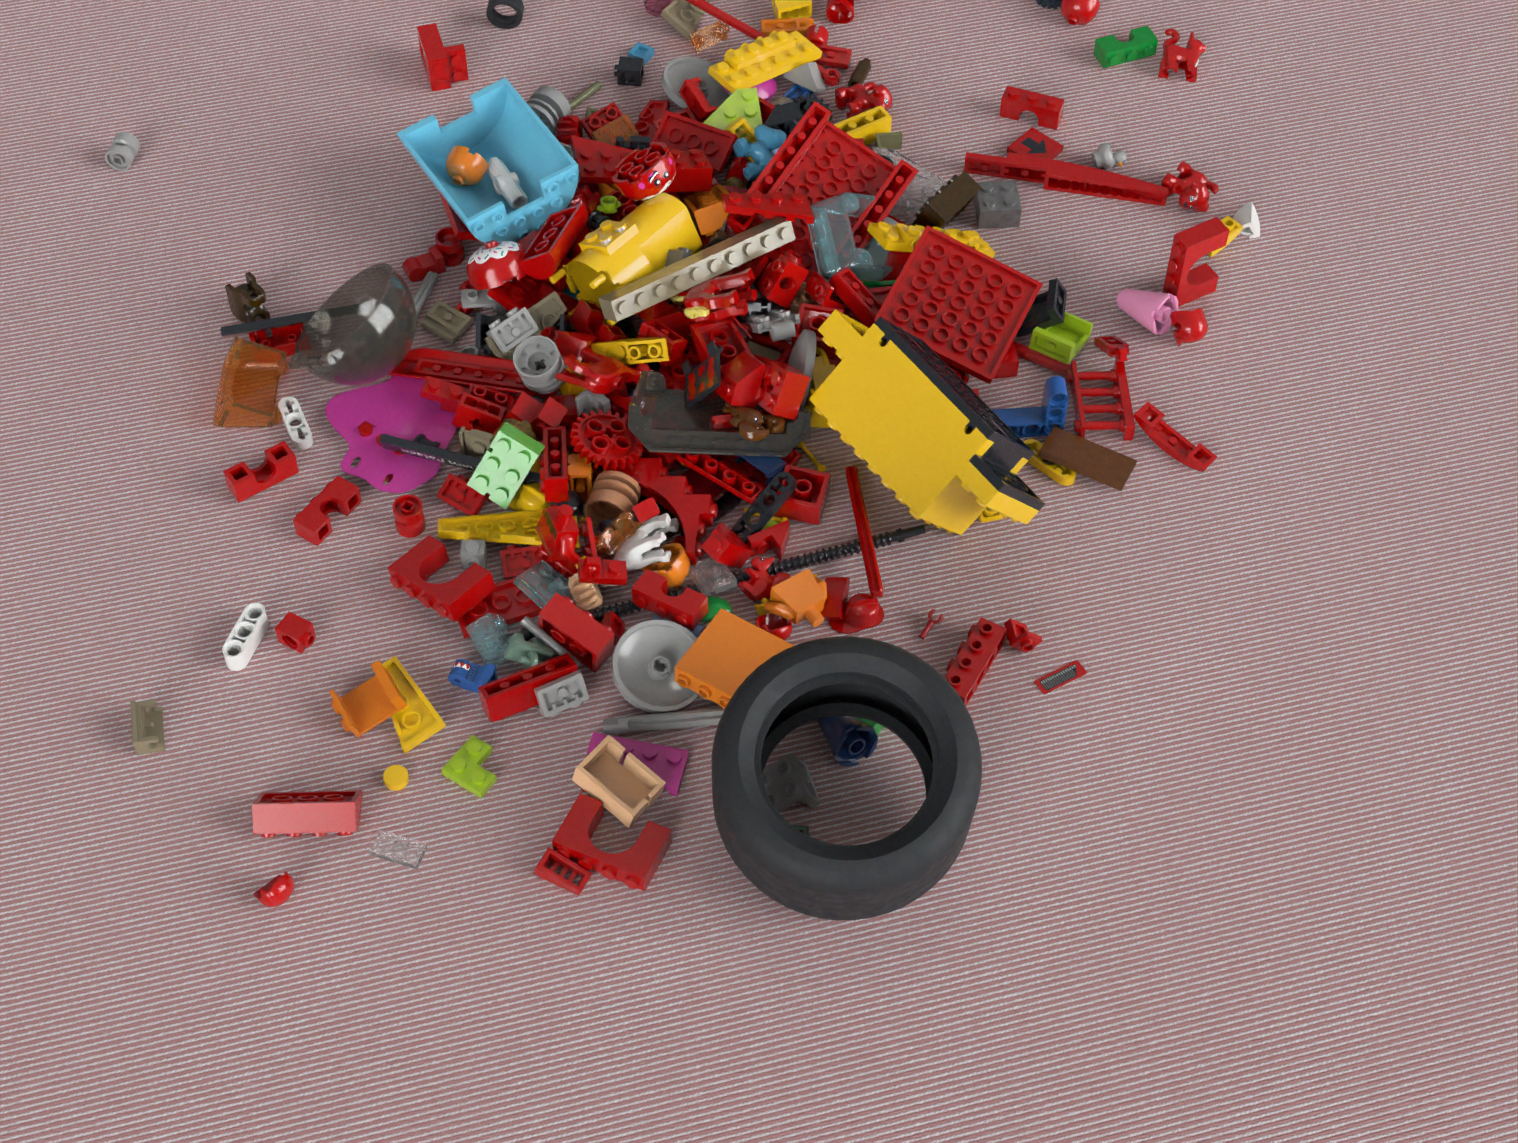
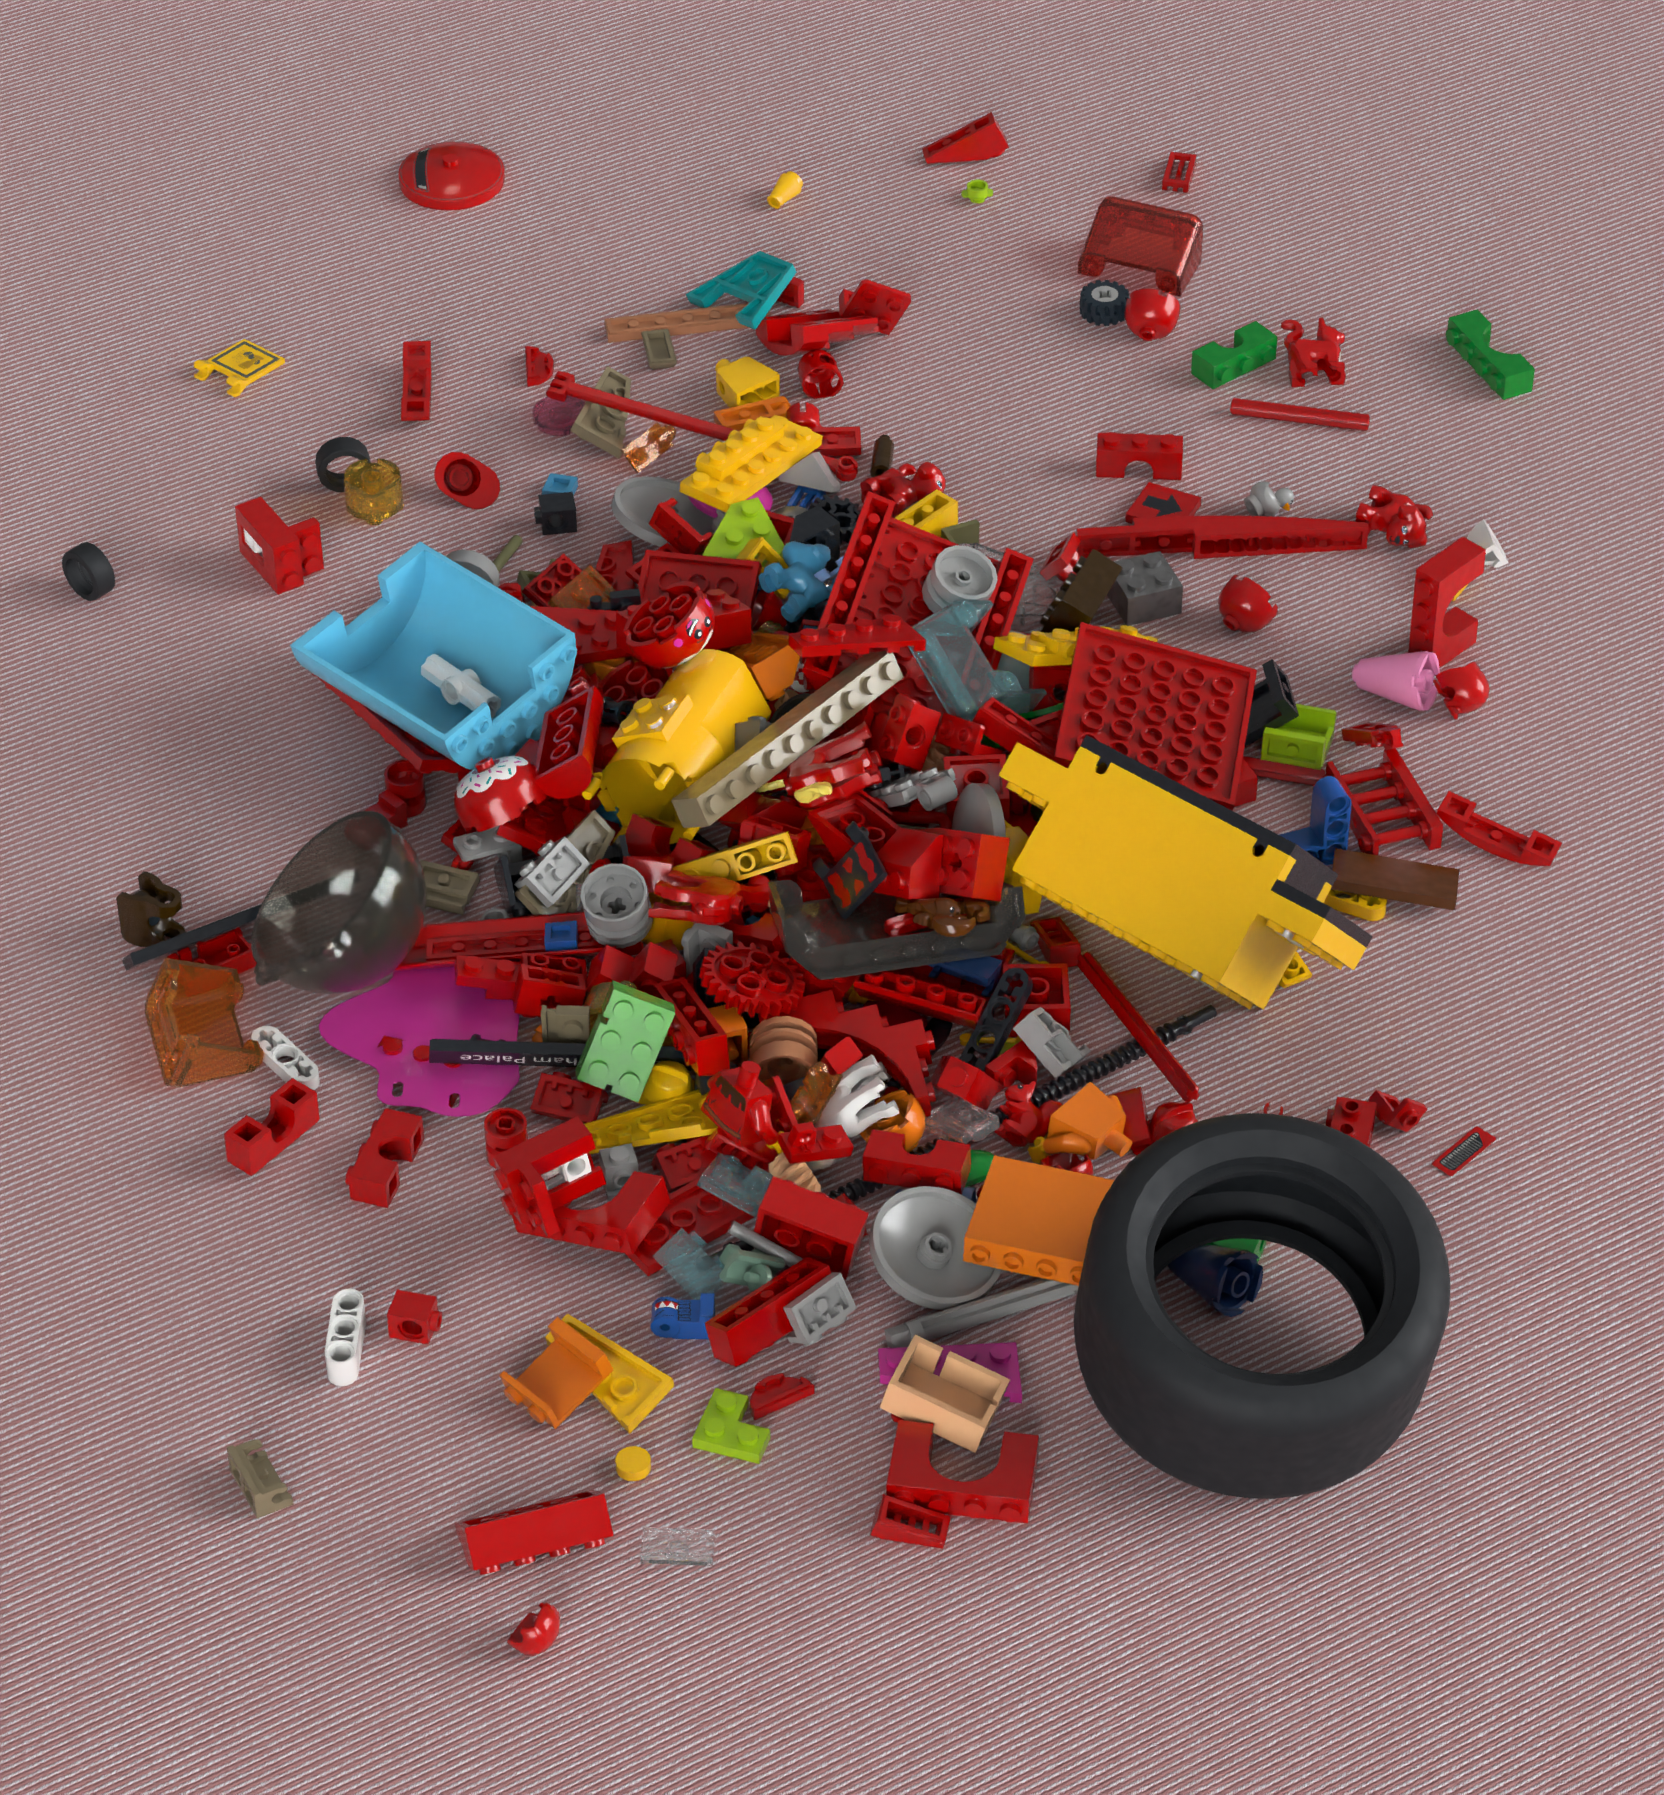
camera: 15 degrees left, 10 degrees down
(314, 52) = (88, 571): none -> black tyre
(412, 553) = (547, 1173): none -> red brick
(465, 167) = (397, 673): orange cylinder -> none
(502, 376) = (561, 936): none -> blue tile
(513, 748) = (778, 1392): none -> red tile
(517, 32) = (373, 490): none -> clear yellow brick
(580, 36) = (467, 480): none -> red piece
(608, 205) = (619, 686): lime plate -> none
(798, 529) = (1050, 1042): none -> light grey slope
(816, 444) = (1025, 937): none -> light grey pin
(836, 454) = (1059, 945): none -> red slope
(859, 174) = (959, 575): none -> light grey wheel
(948, 171) = (1061, 559): none -> red tile
(1060, 232) = (1245, 605): none -> red cylinder
(1155, 98) = (1300, 414): none -> red axle
(1308, 96) = (1505, 373): none -> green arch

